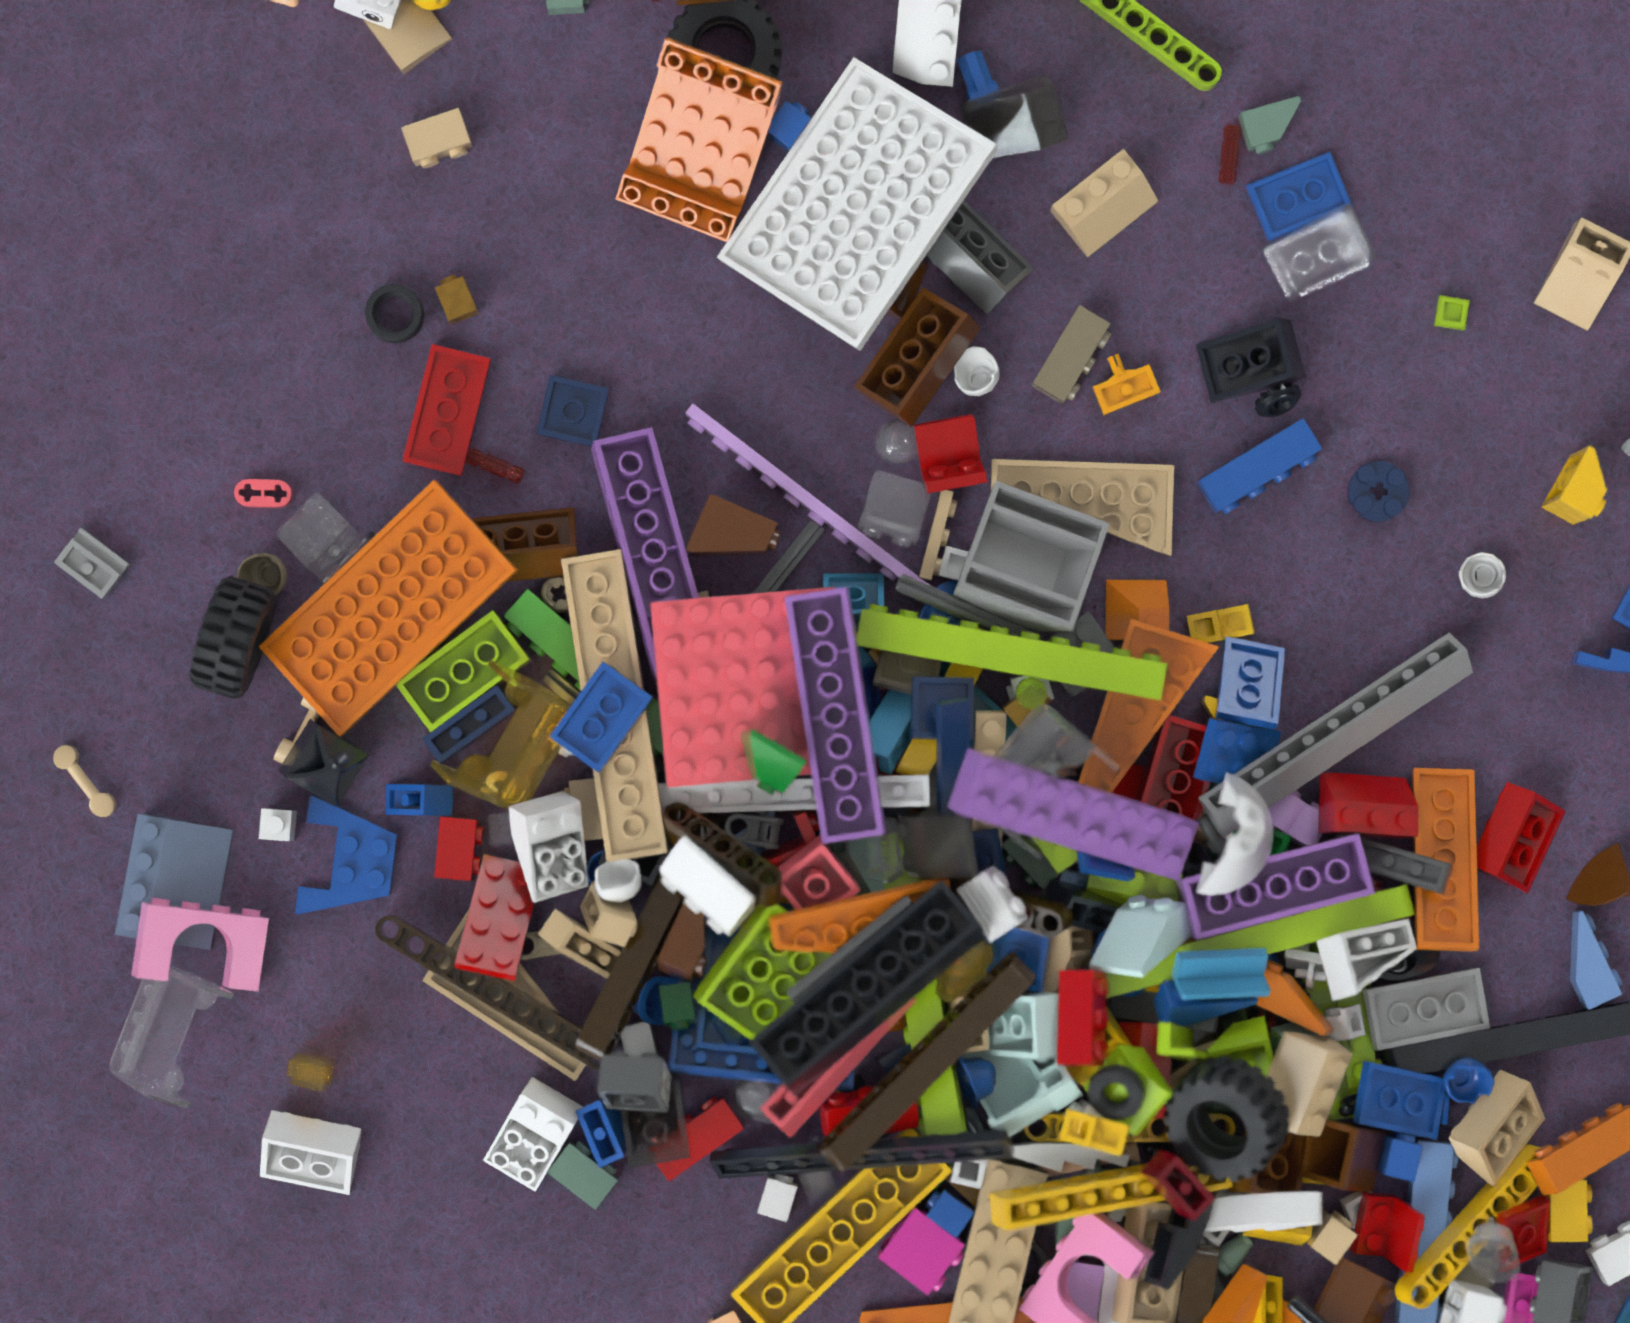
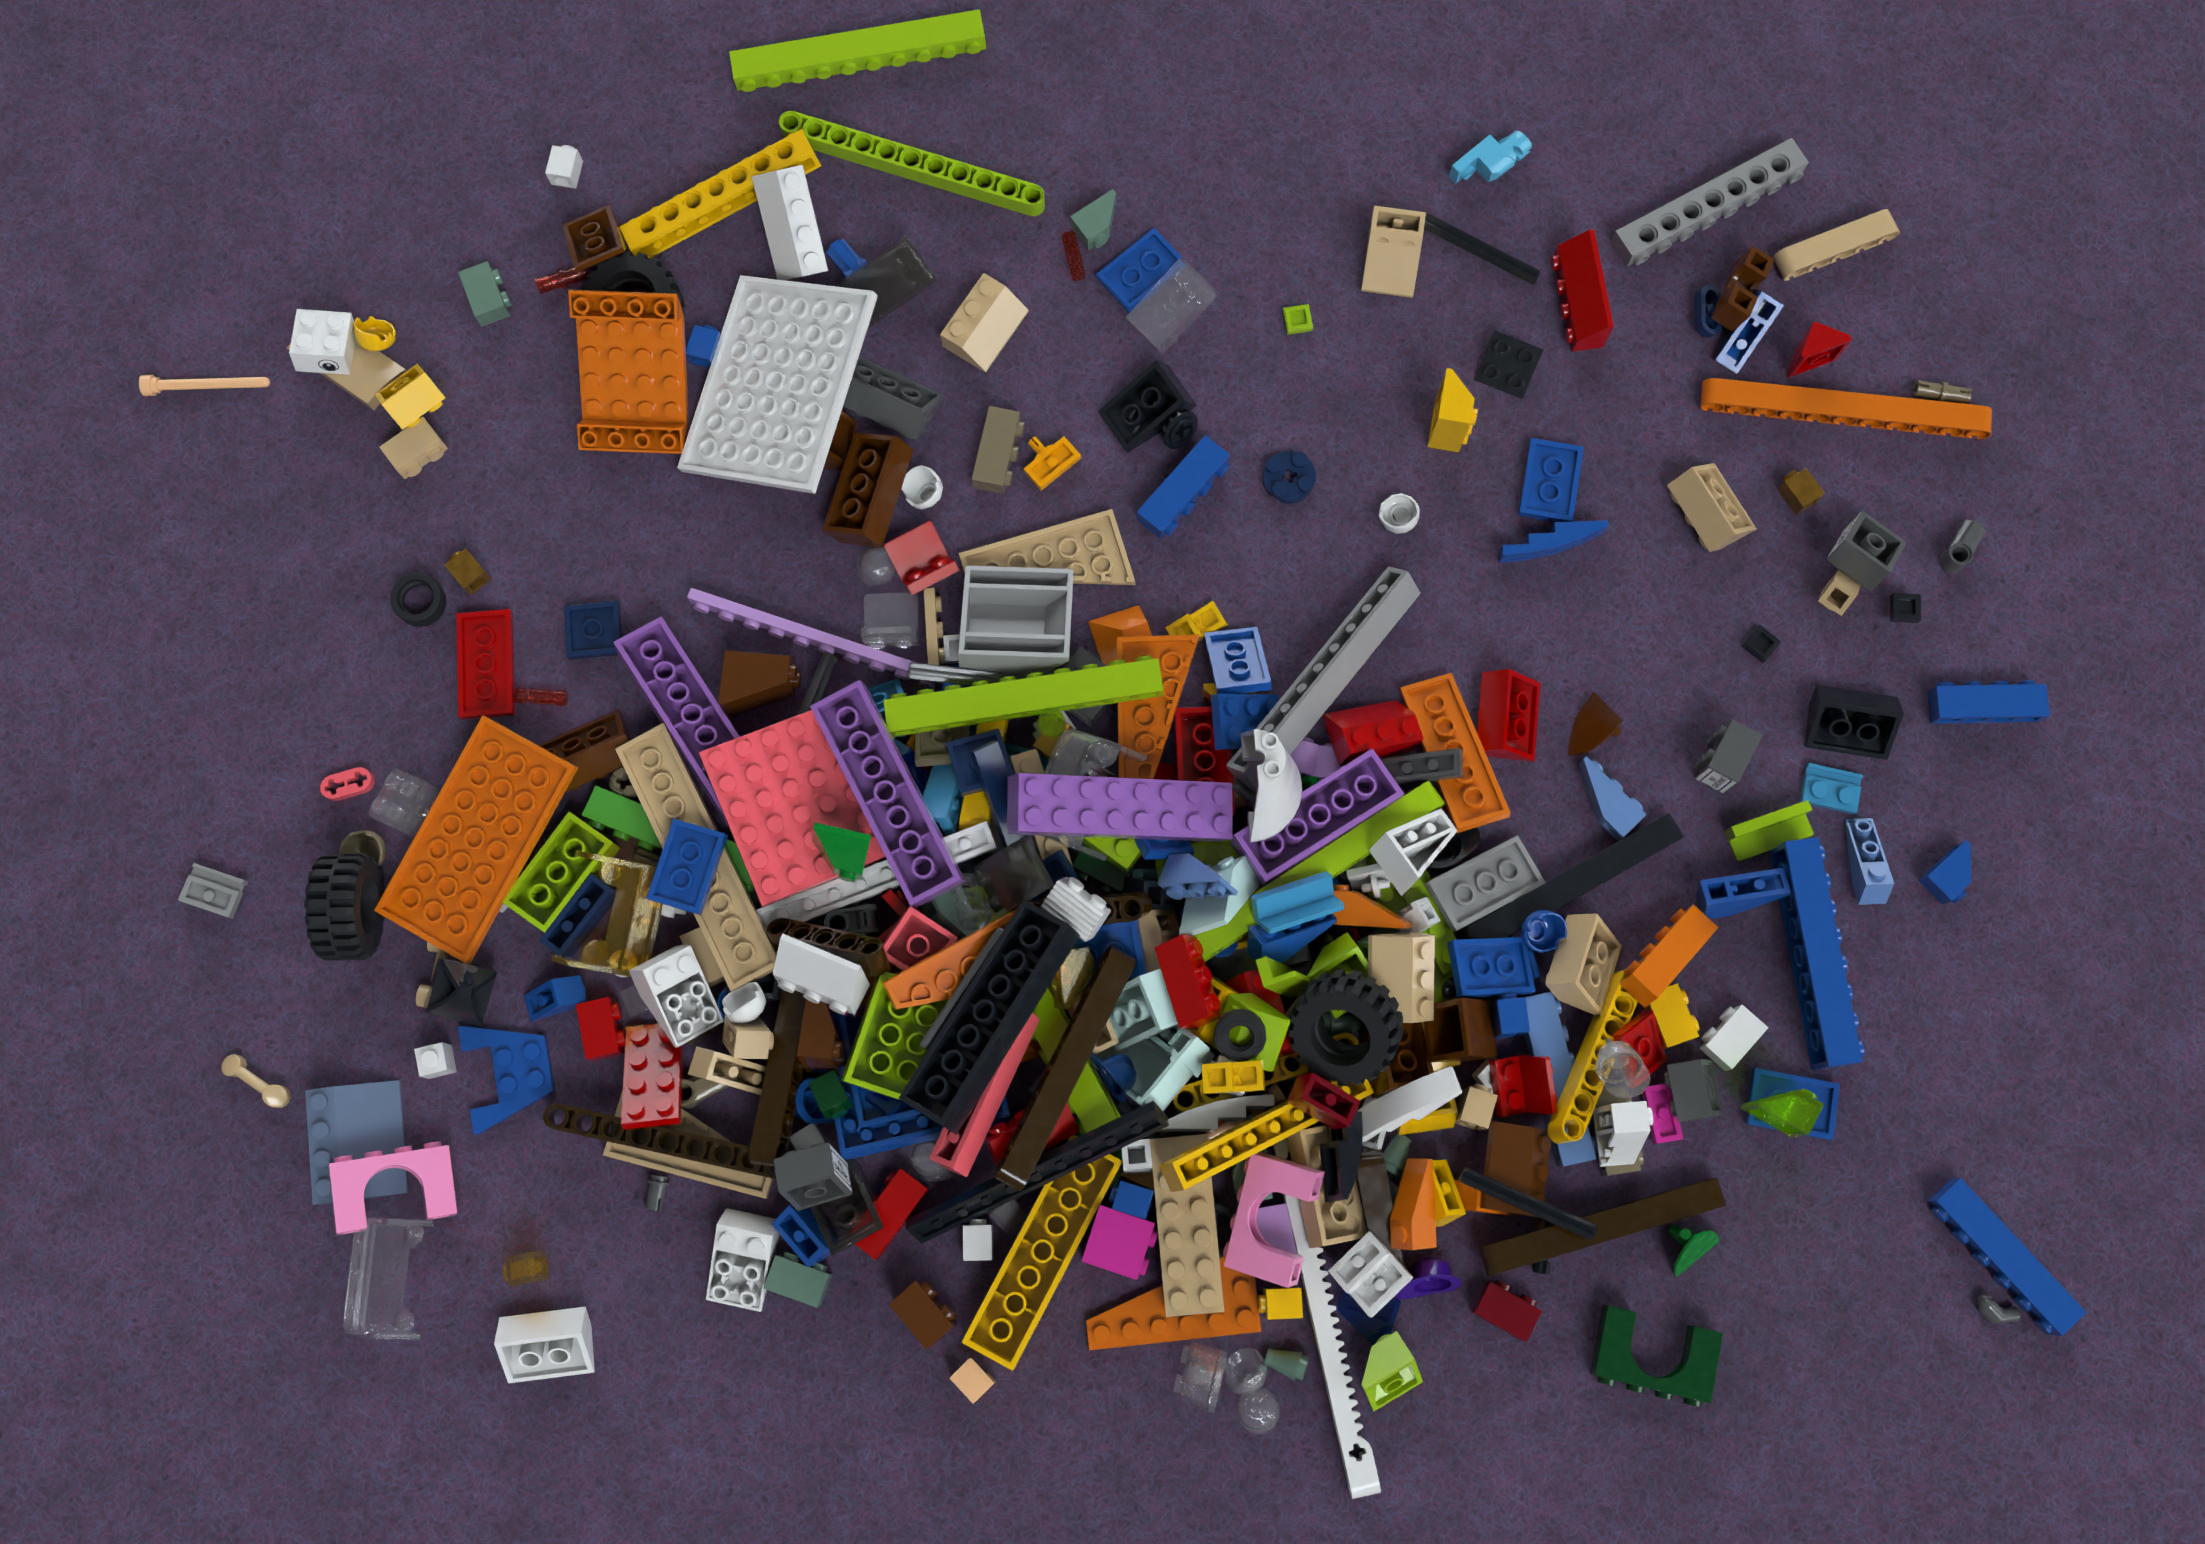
camera: 15 degrees left, 10 degrees down
(451, 81) = (410, 397): none -> yellow brick
(465, 1035) = (656, 1192): none -> dark grey pin
(701, 1252) = (924, 1313): none -> reddish brown brick
(1119, 907) = (1188, 878): none -> medium blue slope

